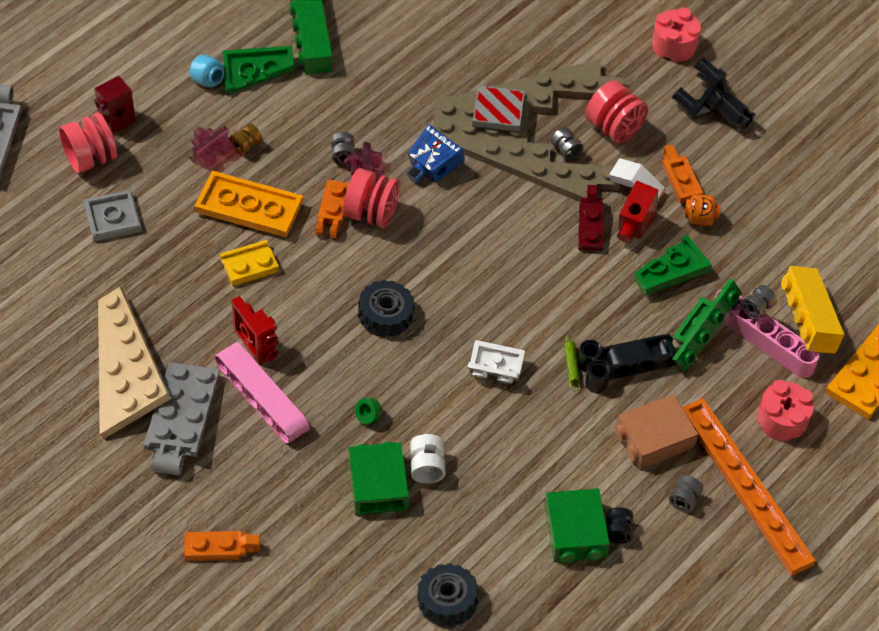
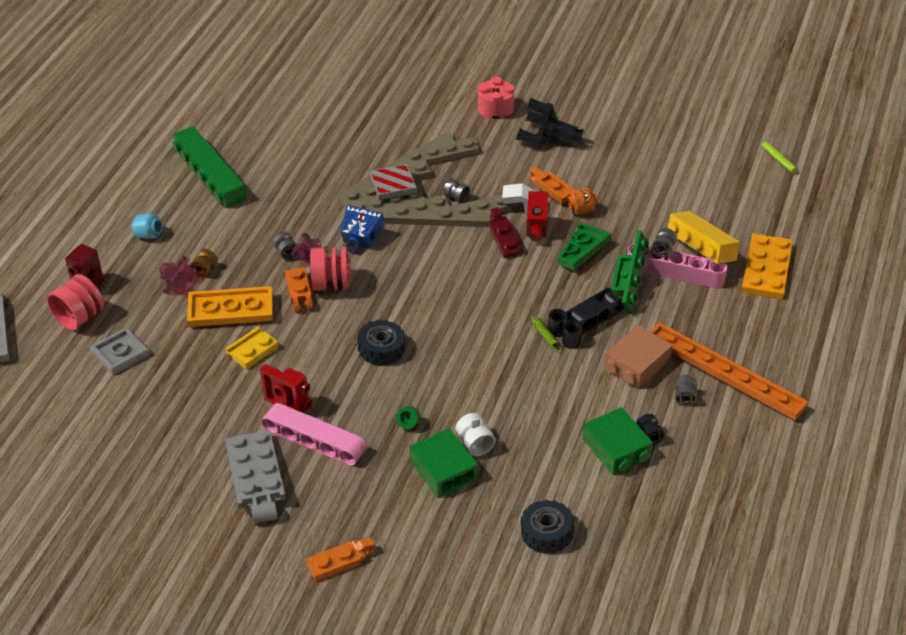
camera: 20 degrees left, 10 degrees down
(127, 371) = (193, 455): tan wing -> none
(255, 65) = (184, 212): green wing -> none
(496, 361) = (489, 350): white bracket -> none
(616, 111) = (483, 156): coral wheel -> none
(785, 410) = (723, 310): coral brick -> none

